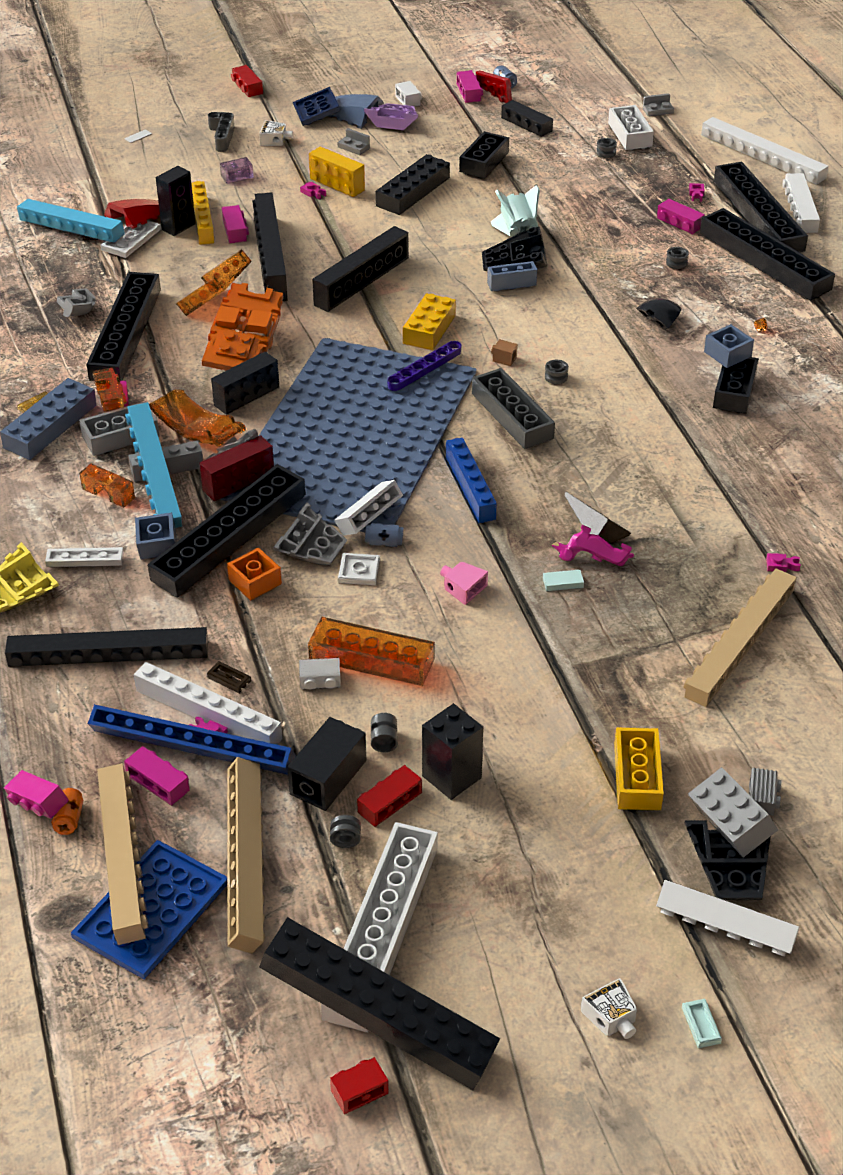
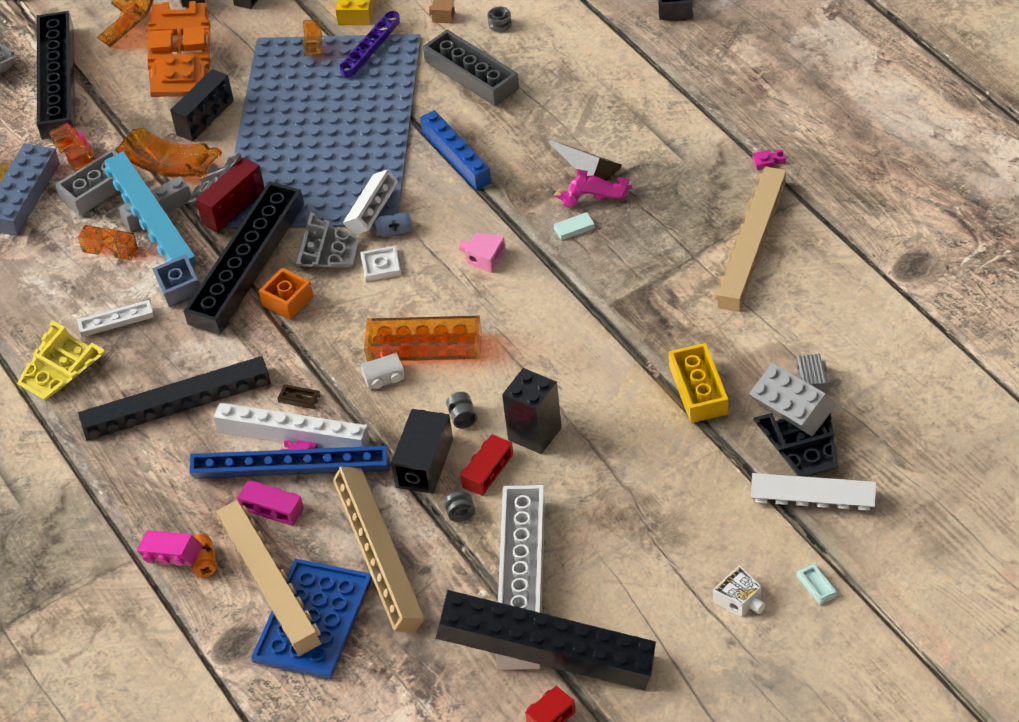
camera: 10 degrees left, 5 degrees up
(372, 348) = (312, 38): none -> clear orange brick

